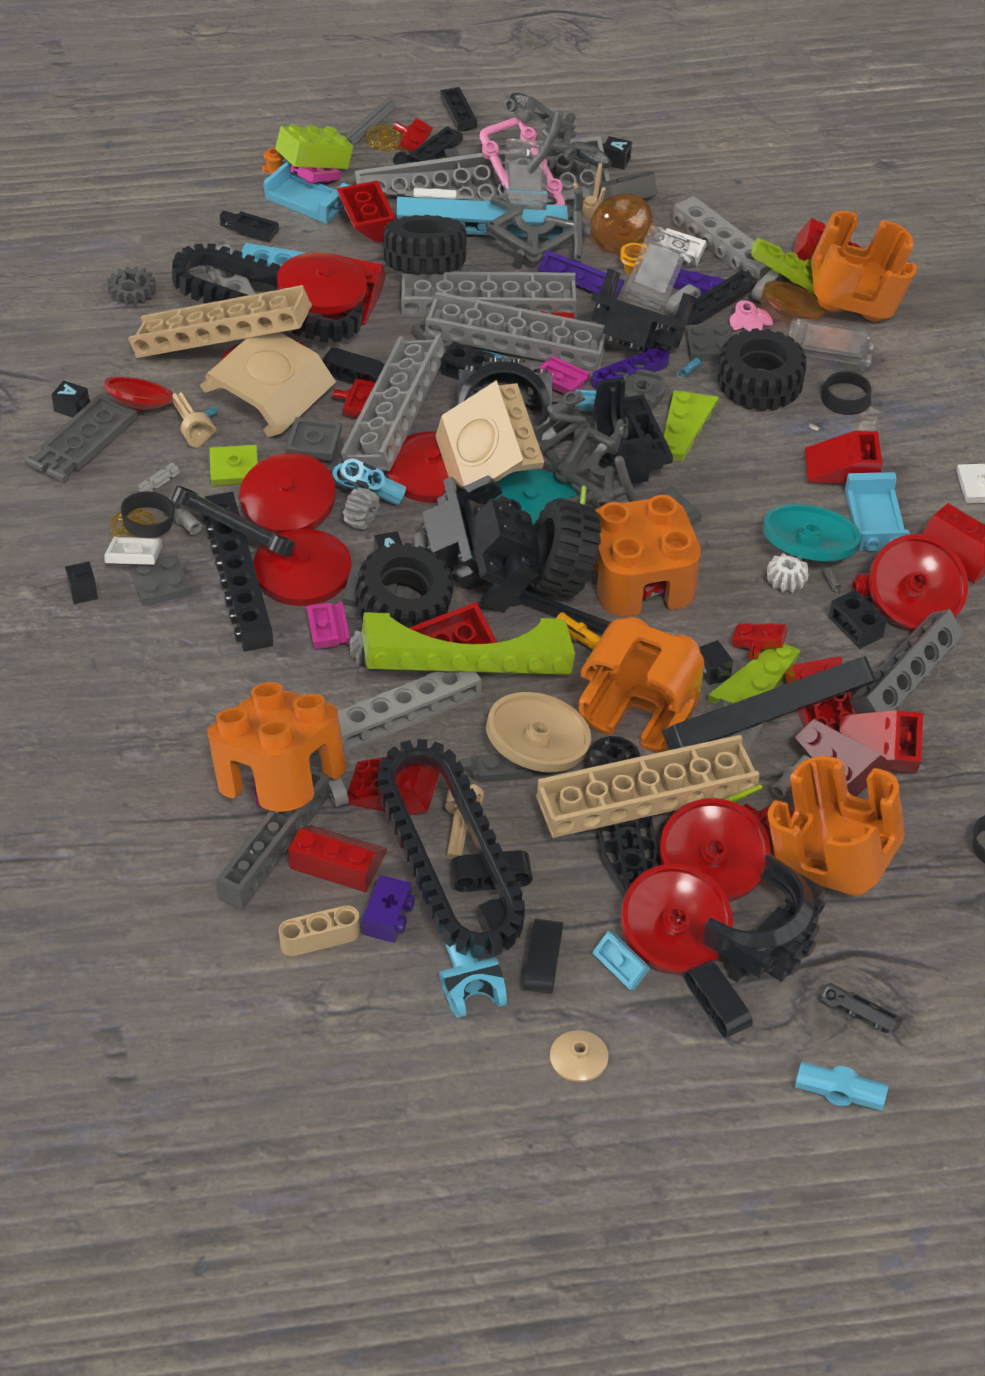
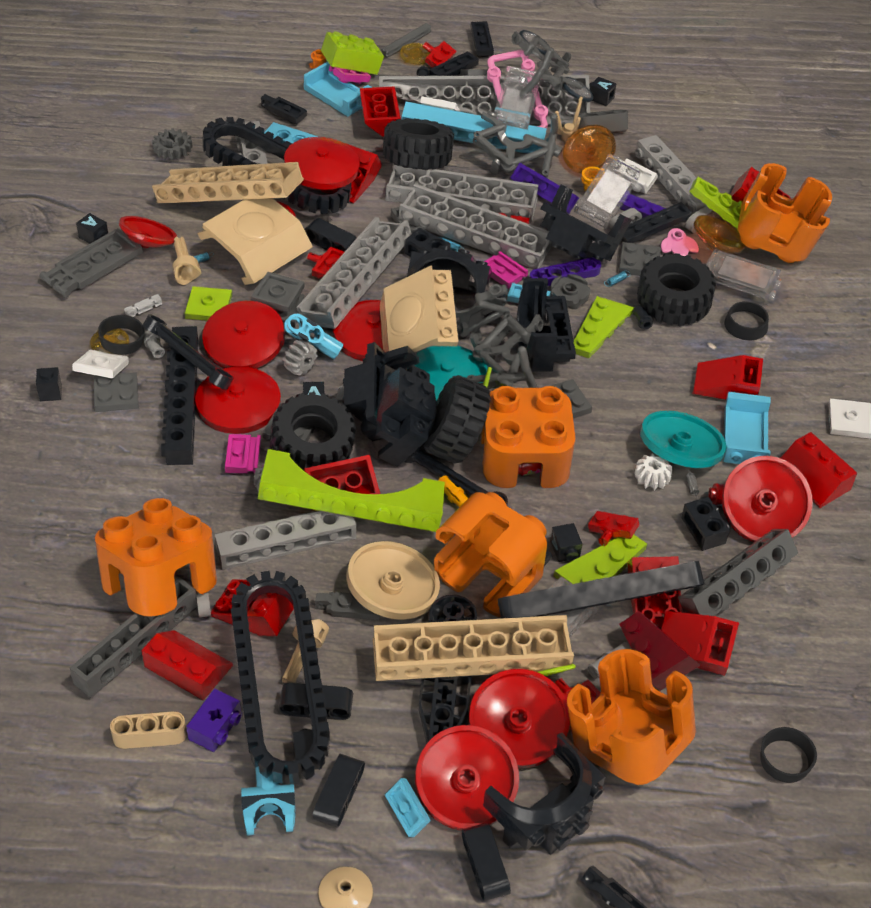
camera: 10 degrees right, 0 degrees up
(733, 409) = (644, 320): none -> black pin

